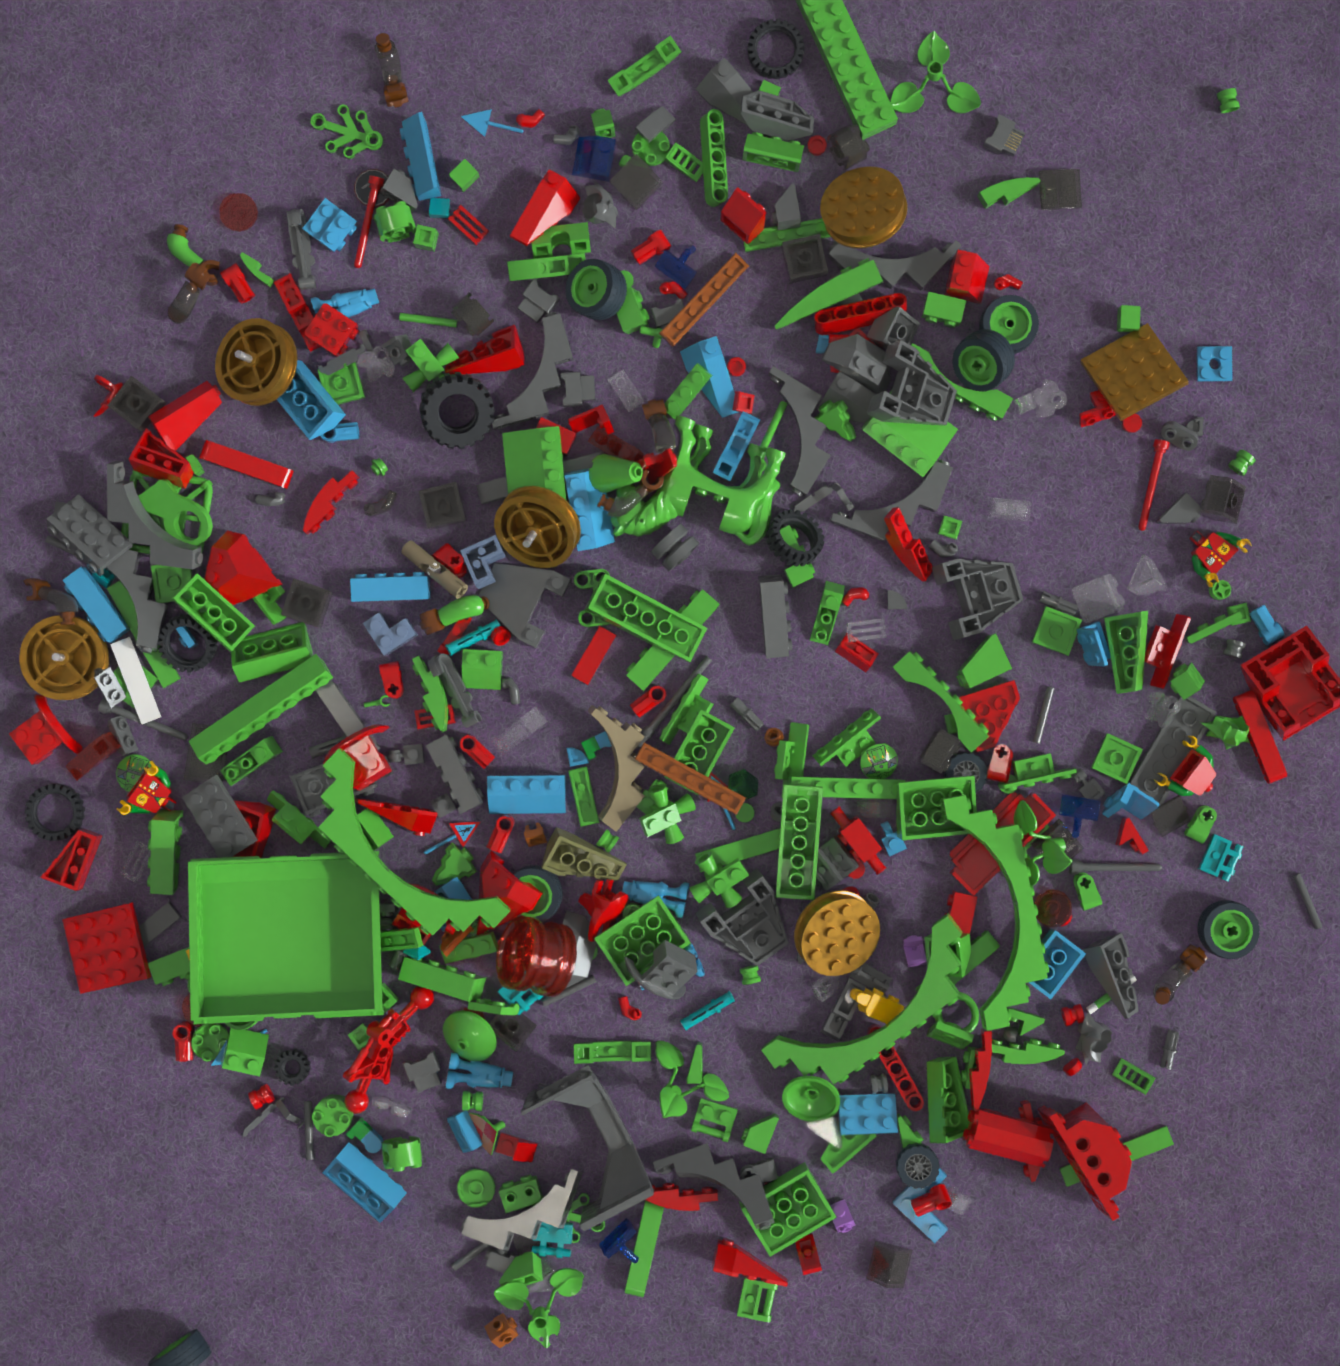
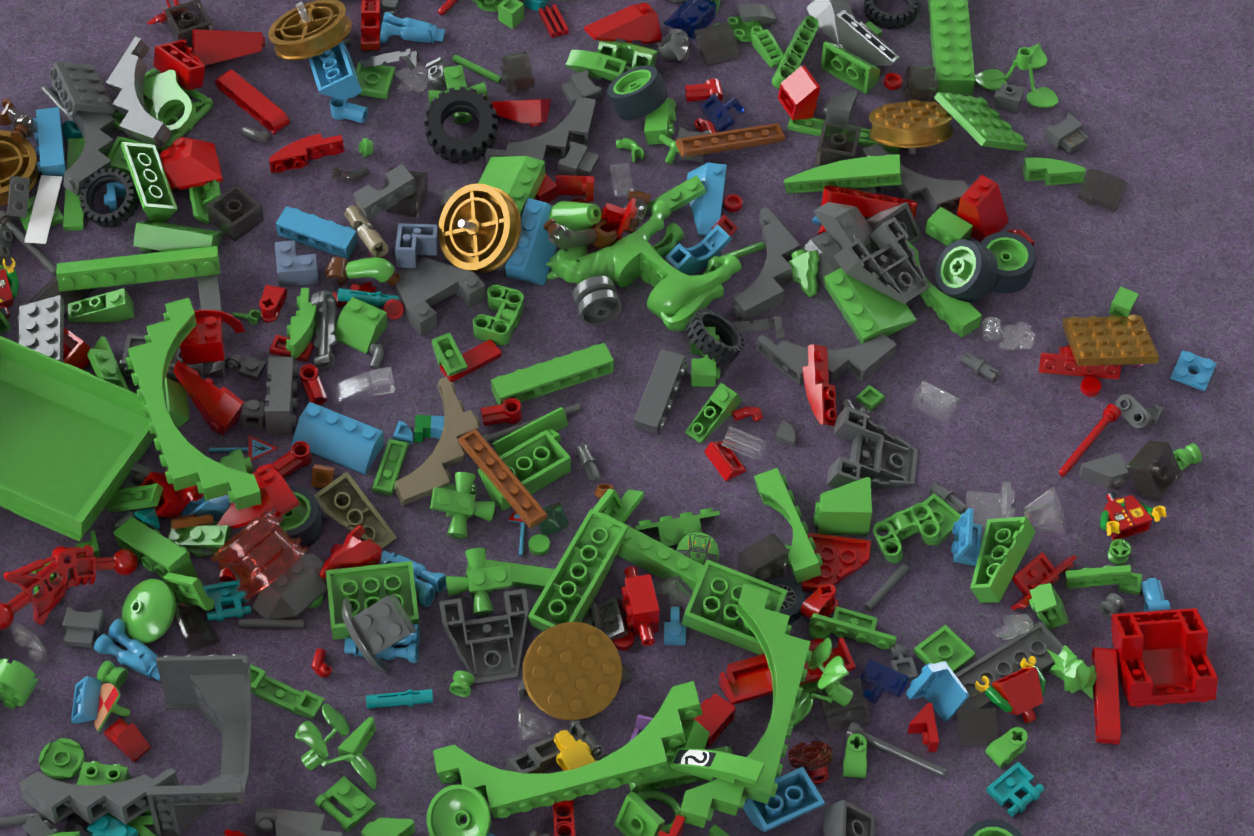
camera: 25 degrees right, 35 degrees down
(195, 465) = (208, 84): bright green tile -> none
(332, 330) = (390, 35): red bracket -> none
(443, 514) = (374, 202): none -> dark grey arch
(451, 560) = (387, 231): red piece -> none
(577, 667) = (448, 354): none -> bright green slope
(607, 841) = (390, 509): bright green wheel -> none
(615, 344) = (629, 144): none -> bright green piece
(645, 618) = (534, 333): bright green slope -> none
(924, 171) = (981, 121): none -> bright green plate
(933, 117) = (1009, 98): none -> dark grey brick
(997, 978) = (716, 764): none -> bright green slope
(1030, 449) = (980, 366): none -> dark grey pin
(1036, 654) = (904, 525): none -> bright green beam

